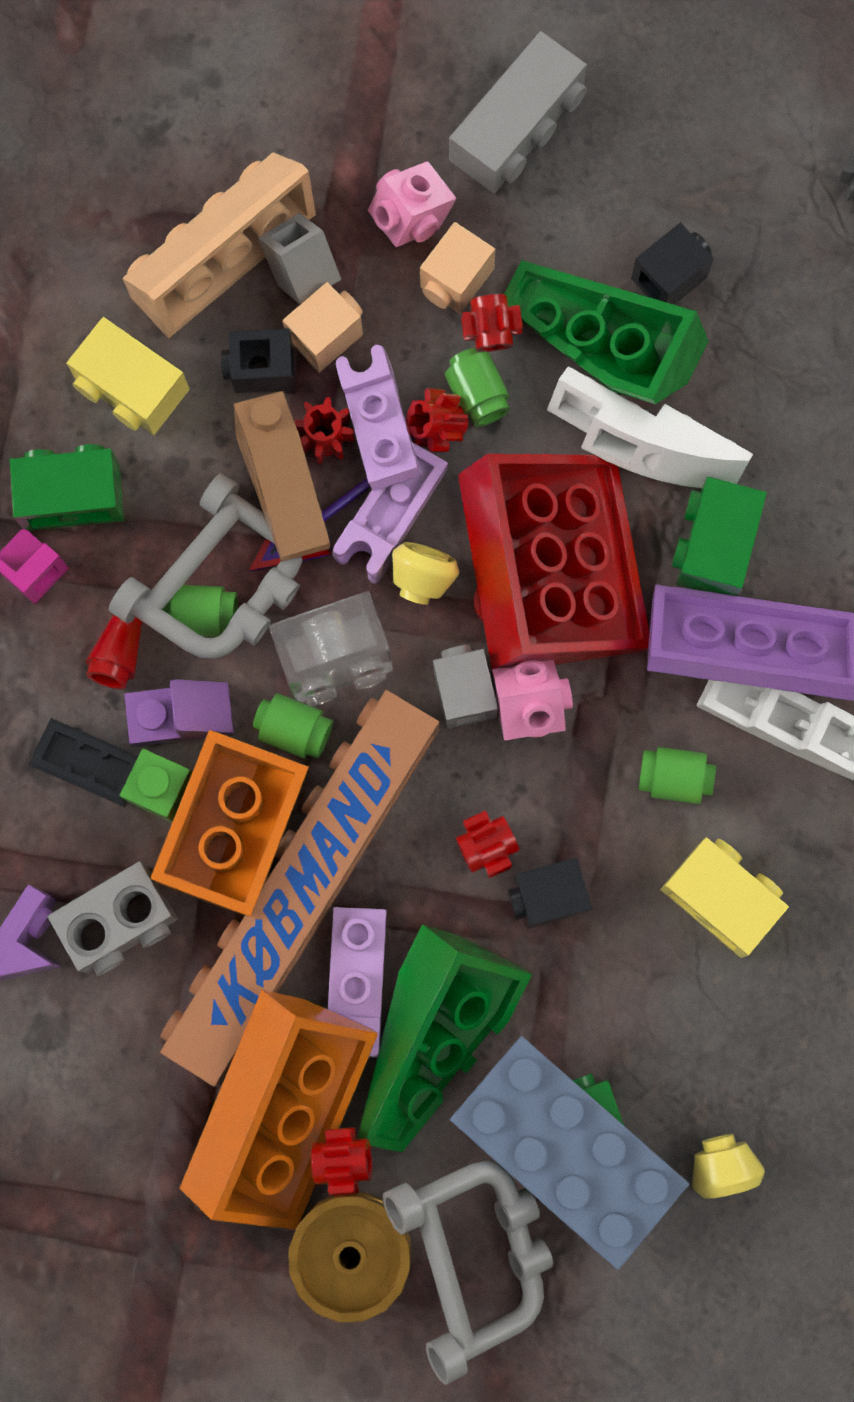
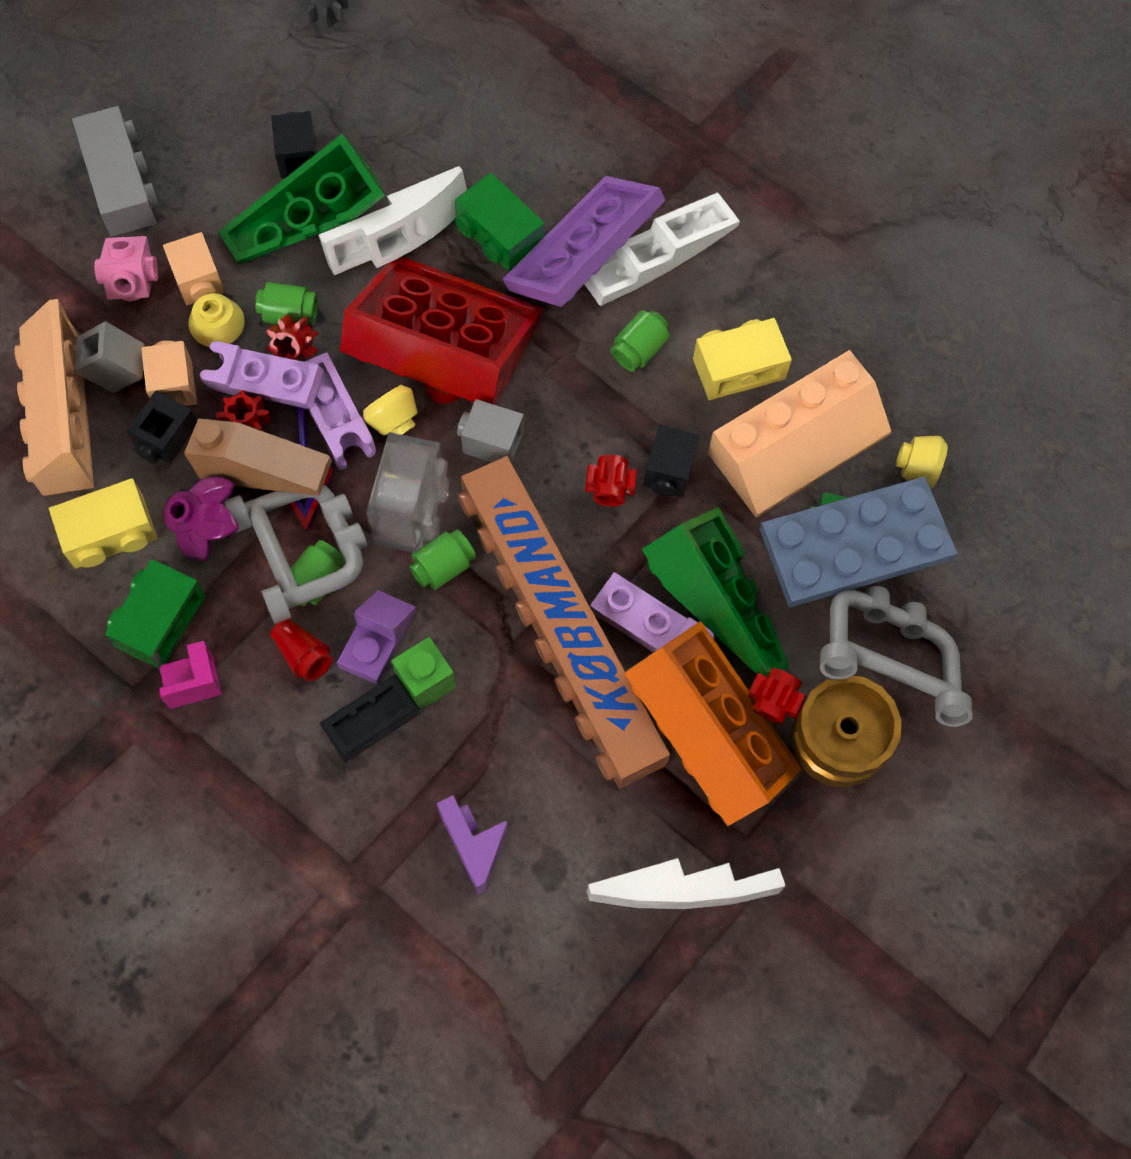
camera: 65 degrees left, 10 degrees down
(83, 1163) = (667, 887): none -> white slope
(108, 906) = (491, 763): light grey brick -> none
(190, 466) = (204, 516): none -> magenta plate
(229, 823) = (486, 636): orange slope -> none
(417, 330) = (215, 319): none -> light yellow cone
(491, 323) = (249, 268): red gear -> none
(531, 699) = (531, 391): bright pink brick -> none
(675, 1017) = (800, 433): none -> light nougat slope

